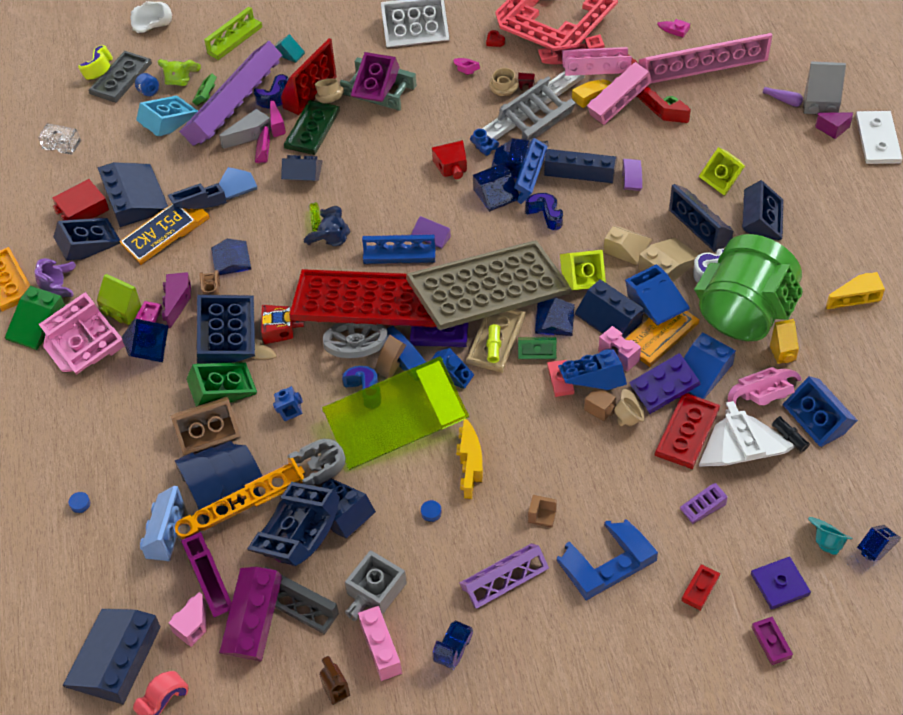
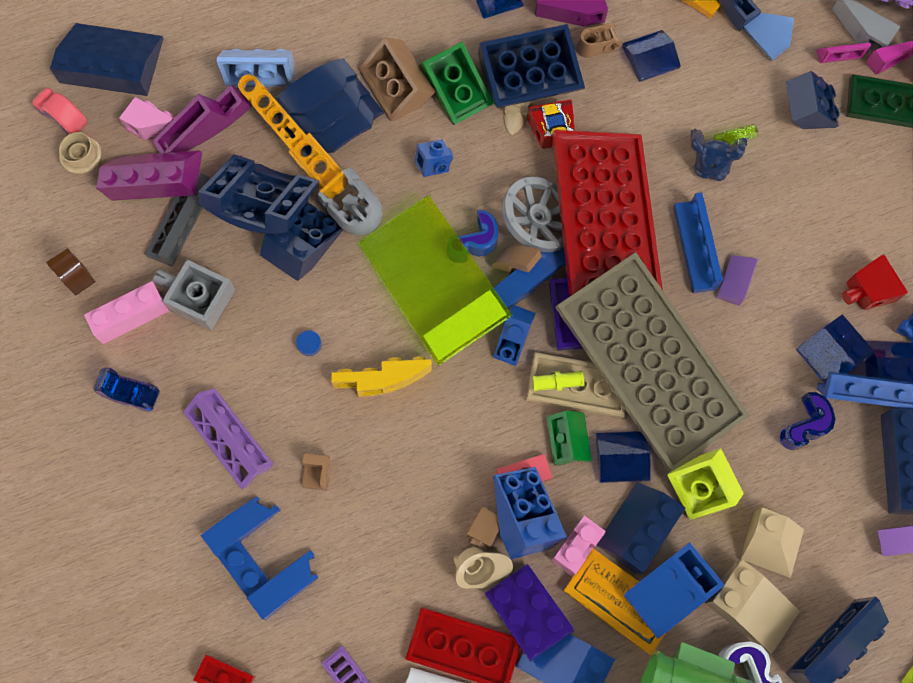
camera: 75 degrees right, 20 degrees up
(211, 678) = (79, 153): none -> tan piece

